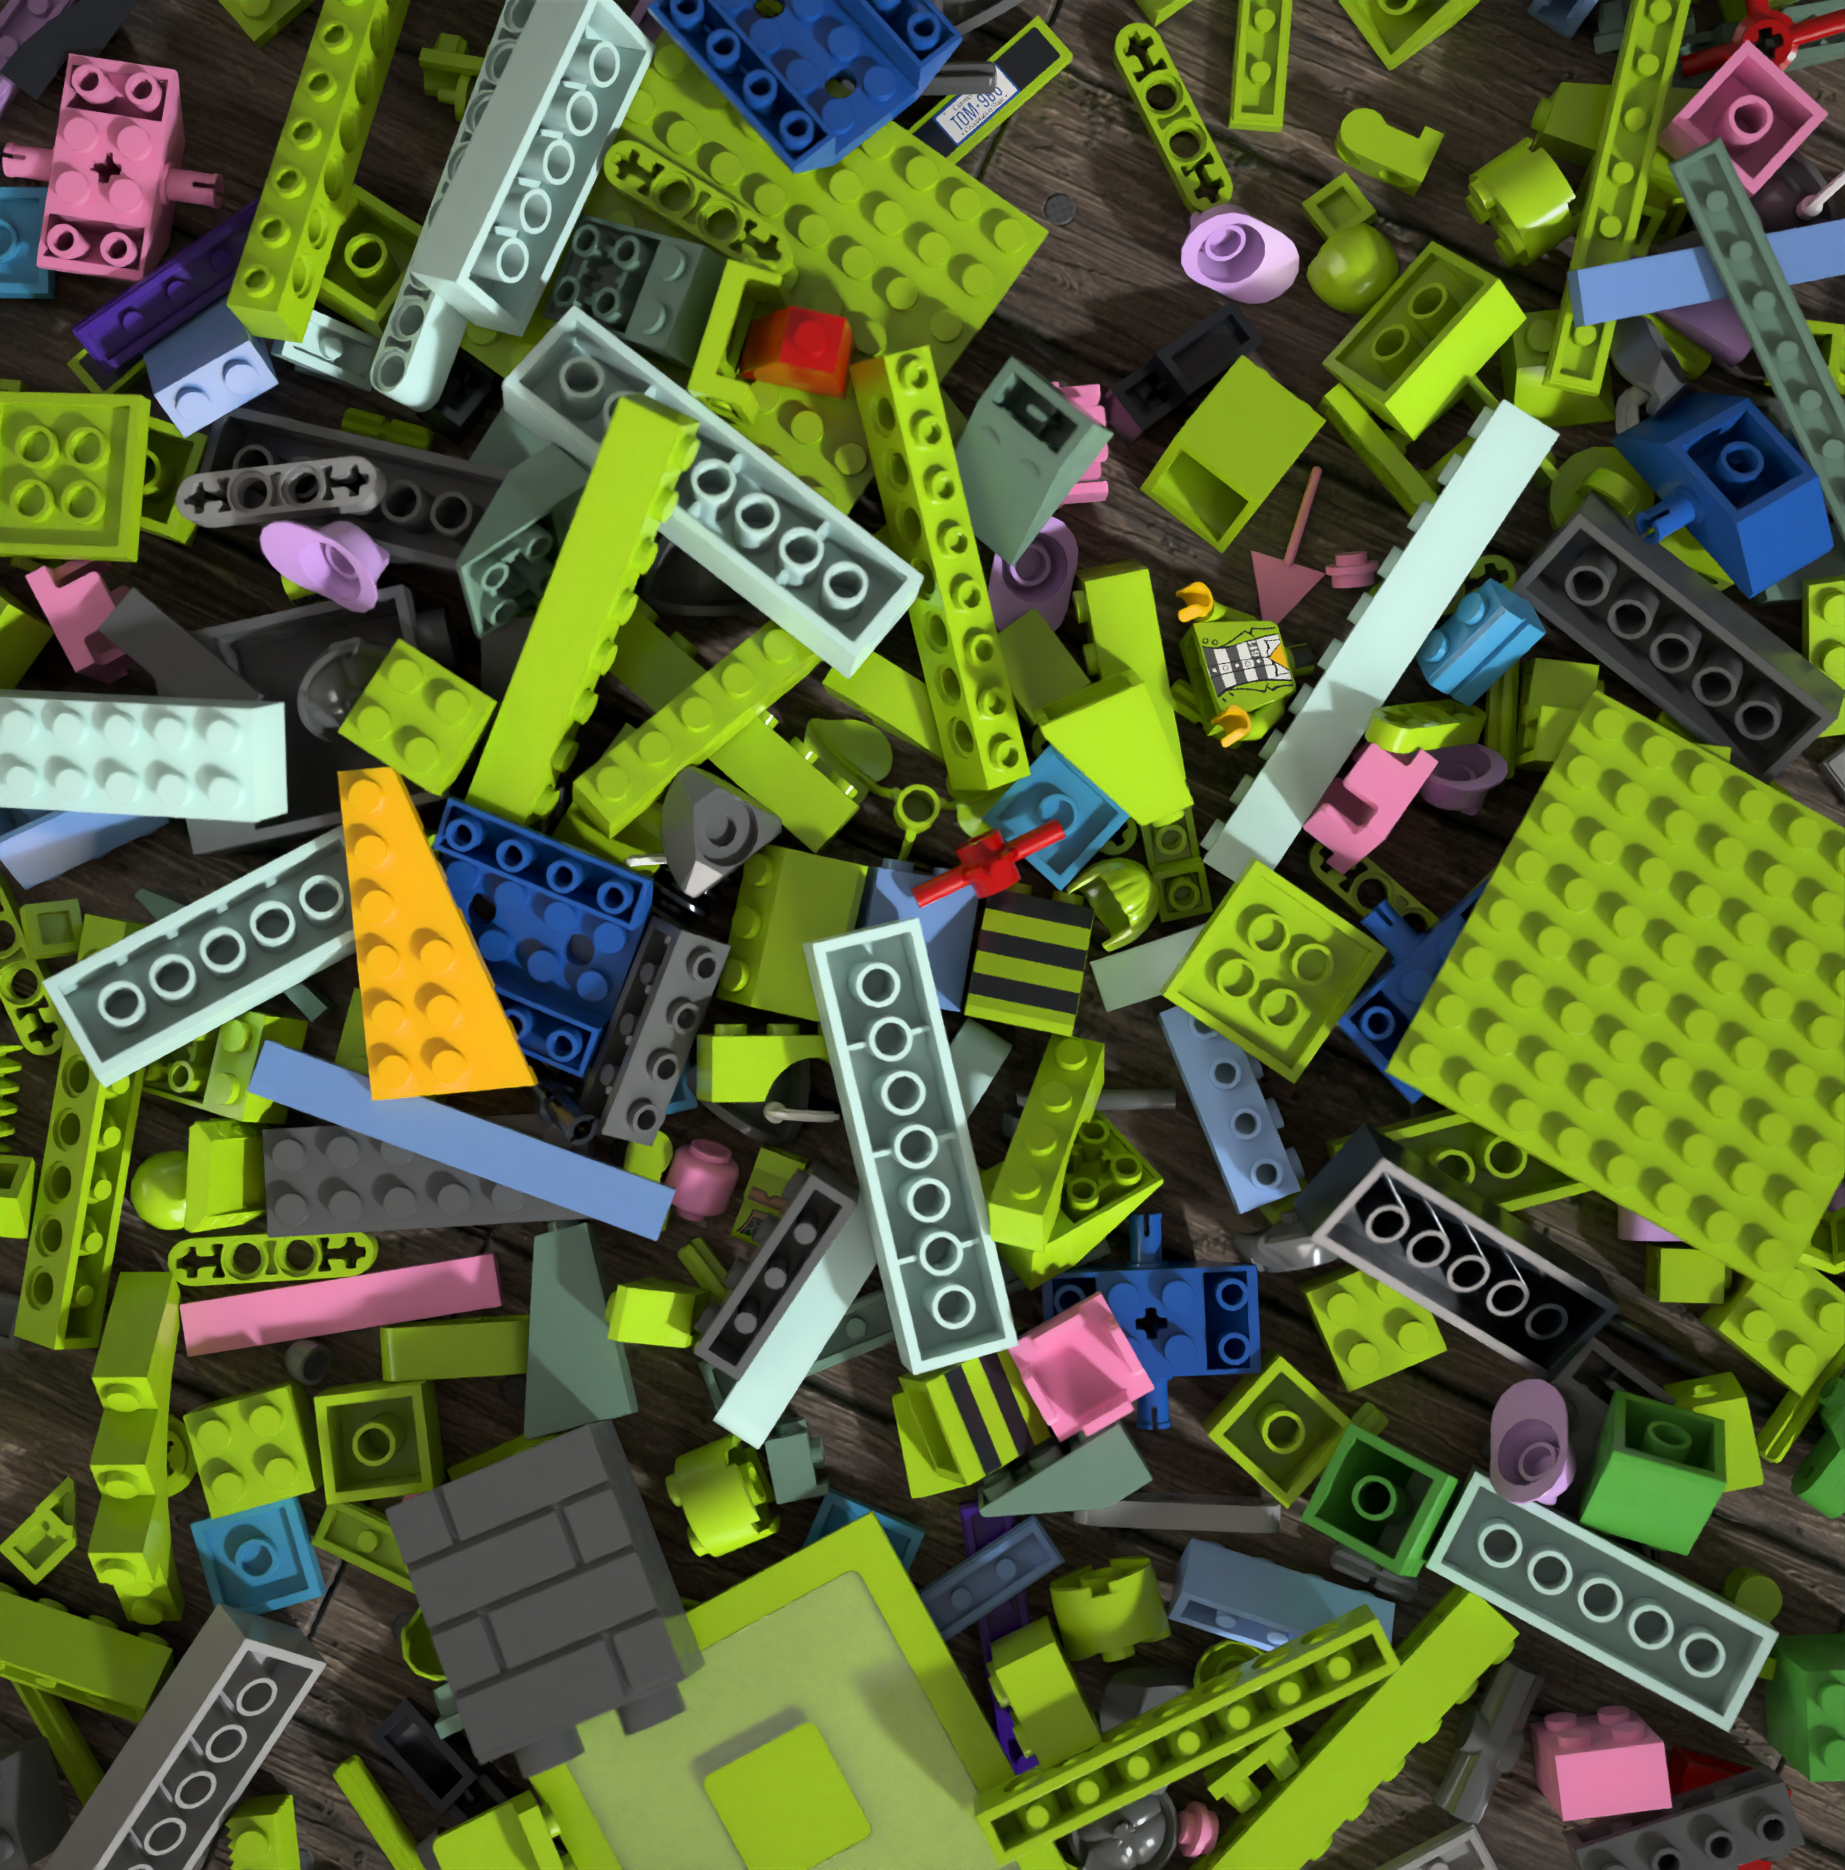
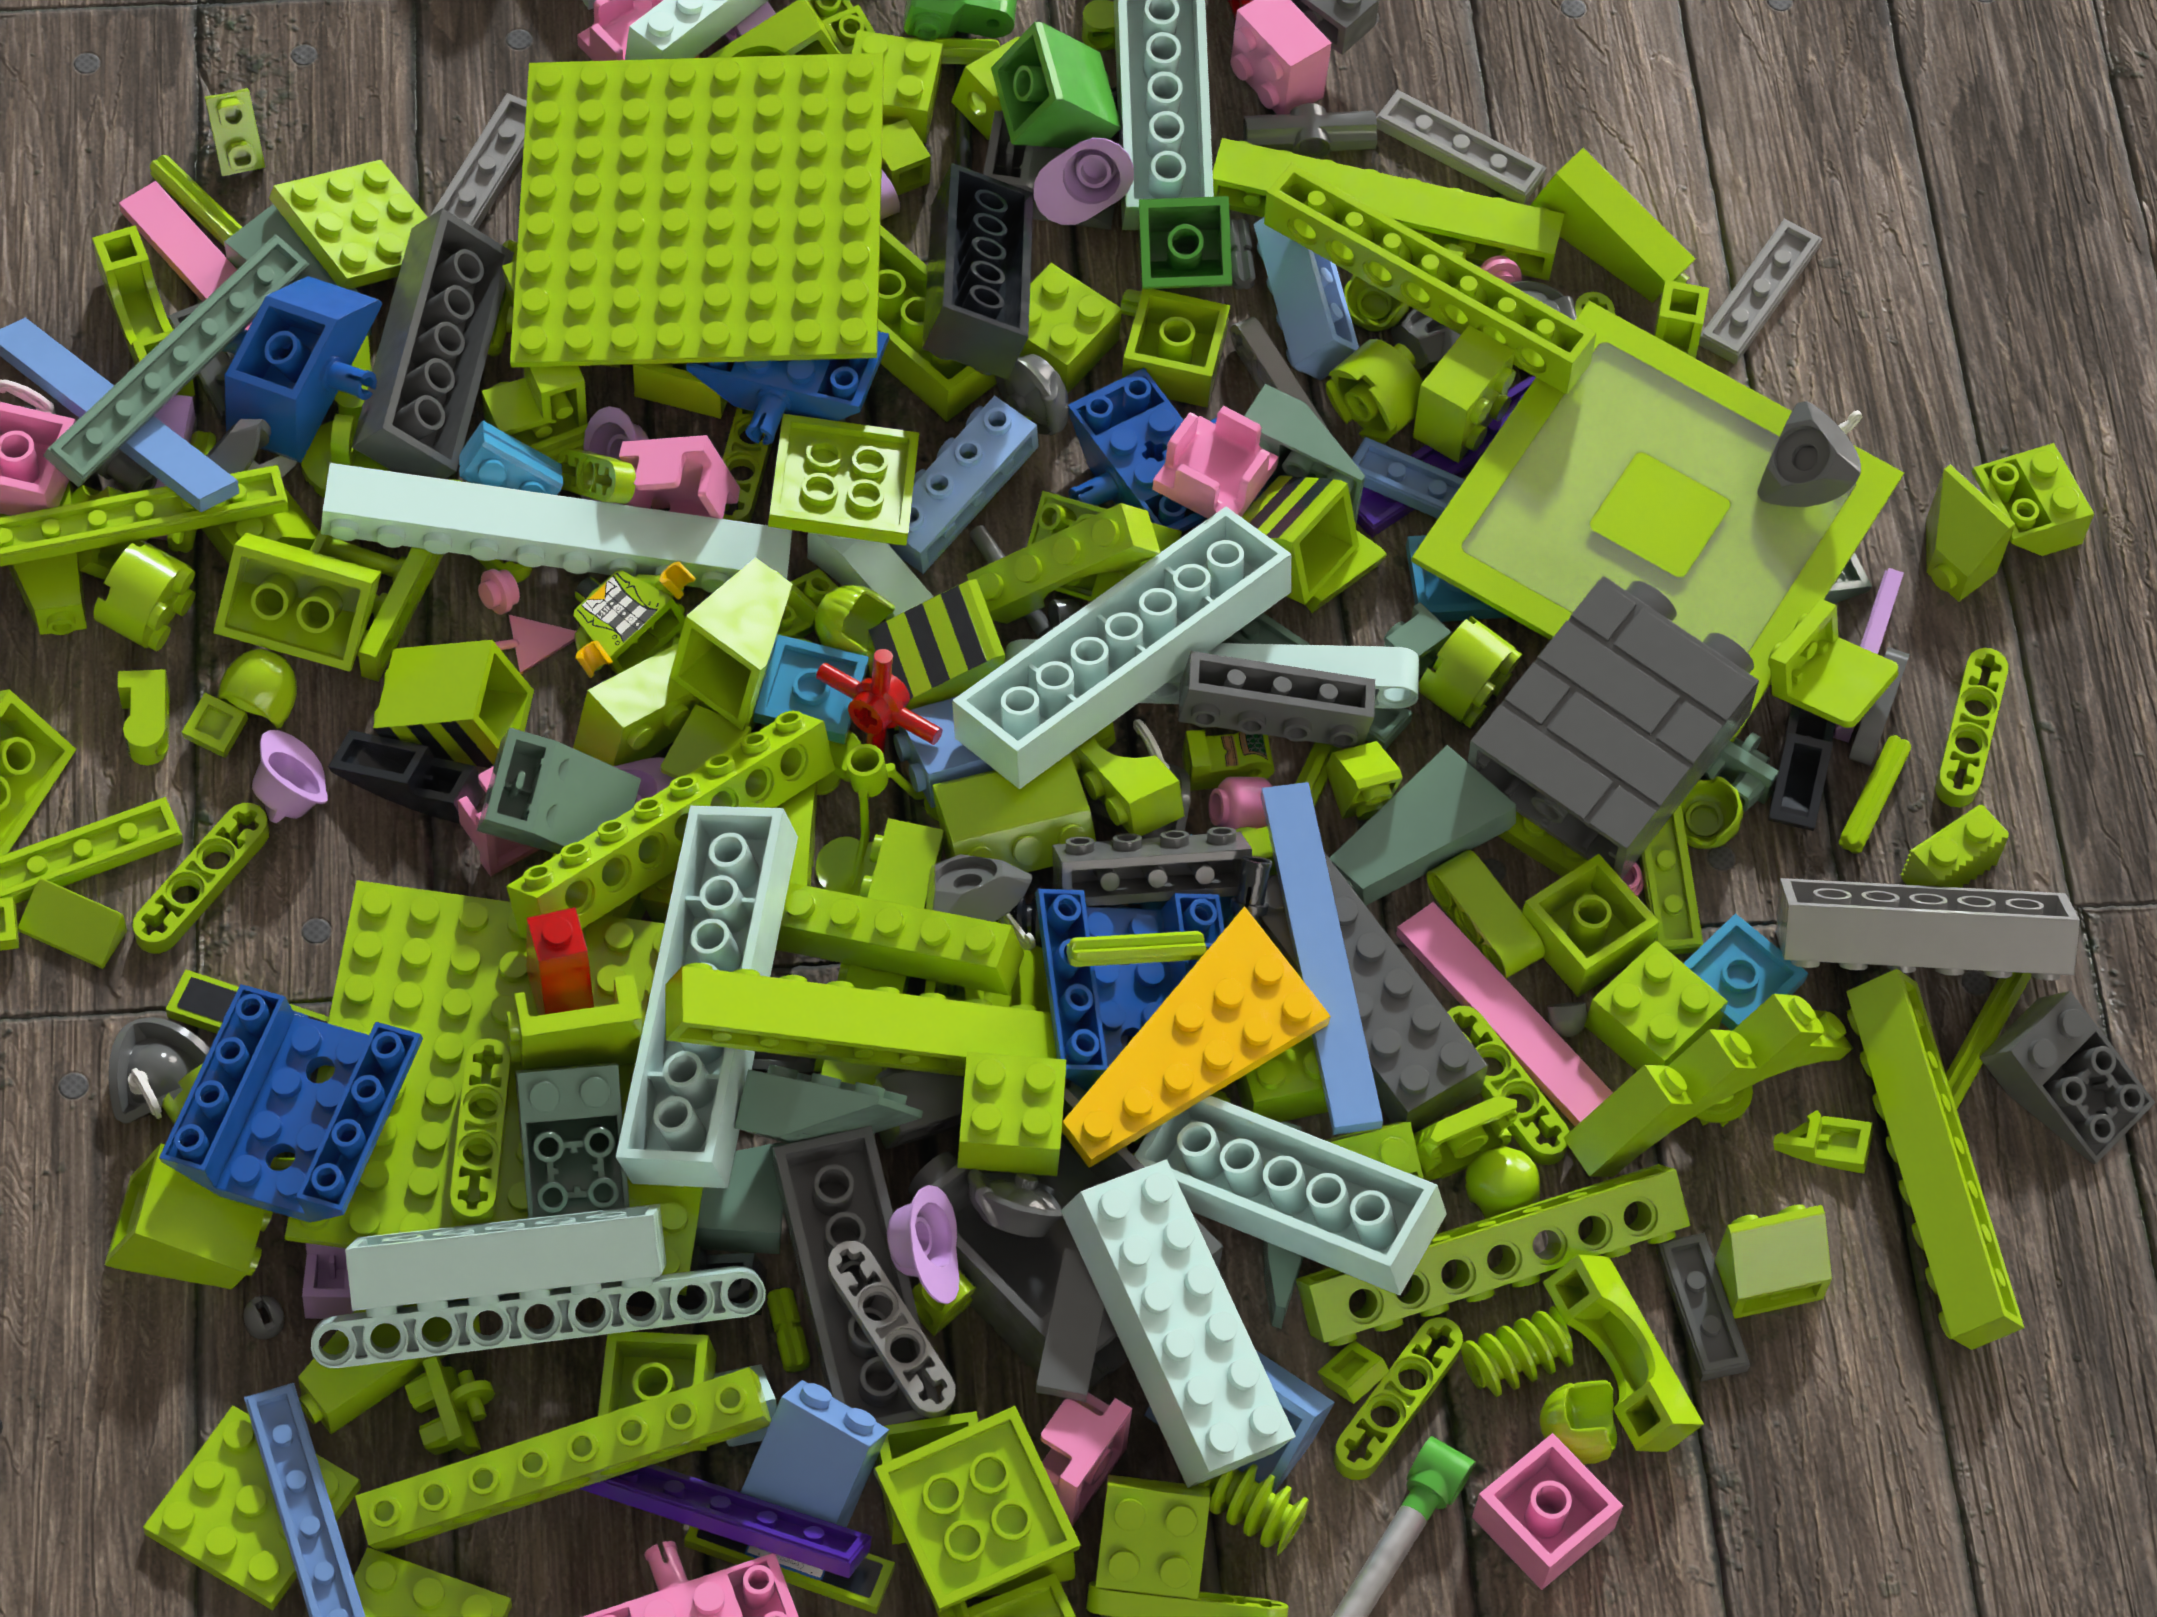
camera: 125 degrees left, 30 degrees down
(535, 943) = (1135, 948): none -> lime axle

